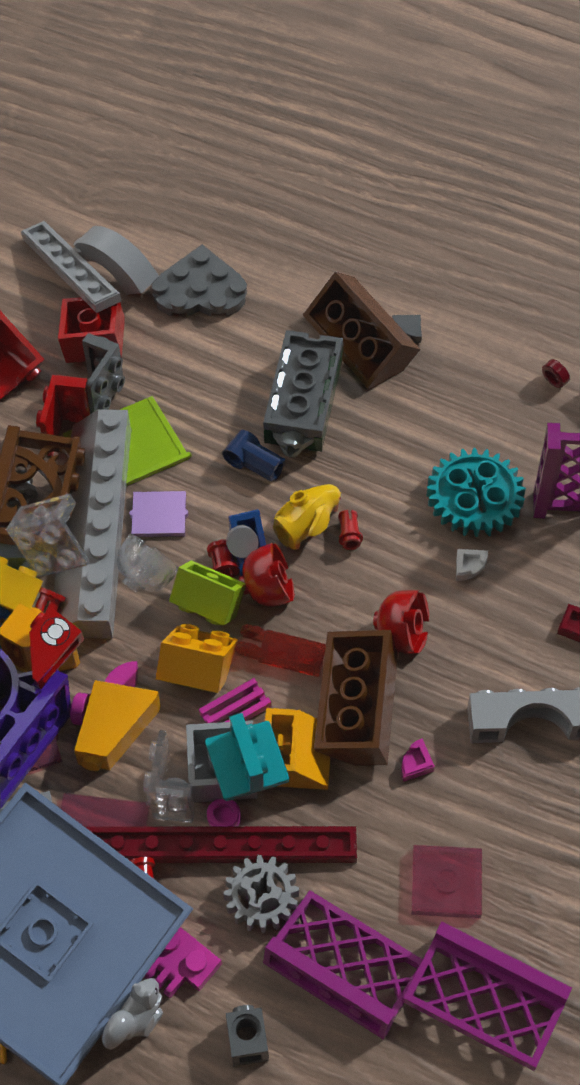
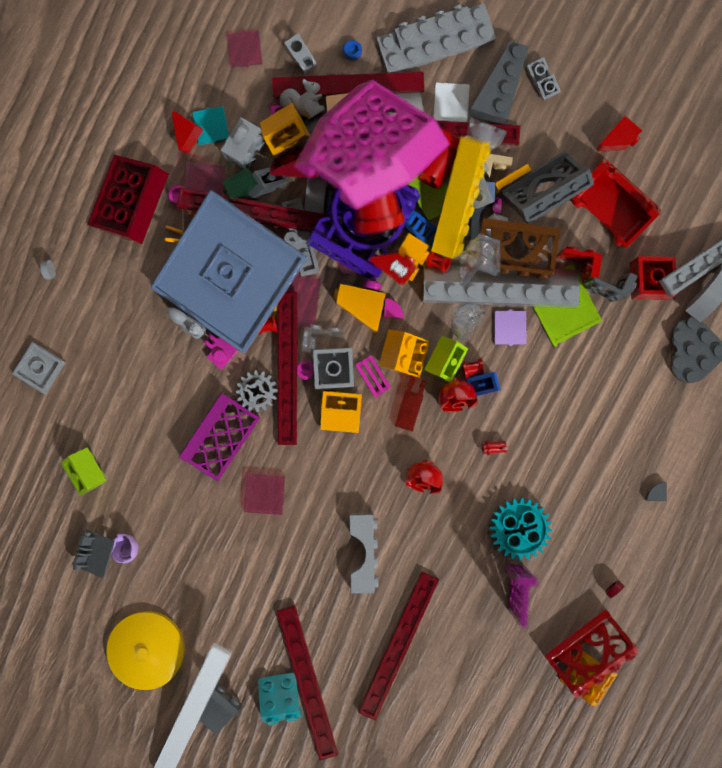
camera: 90 degrees right, 30 degrees up
(241, 541) = (479, 380): light grey tile -> none
(246, 758) = (325, 383): teal bracket -> none
(248, 452) = (553, 383): dark blue piece -> none
(252, 1050) = (170, 383): dark grey brick -> none
(303, 392) = (598, 420): dark grey piece -> none
(305, 514) = (503, 420): yellow animal -> none
(357, 697) = (374, 448): reddish brown slope -> none
(372, 341) = (652, 459): reddish brown slope -> none
(416, 761) = (337, 481): dark pink tile -> none
(470, 563) = (470, 521): white tile -> none
(507, 973) = (209, 522): magenta fence -> none

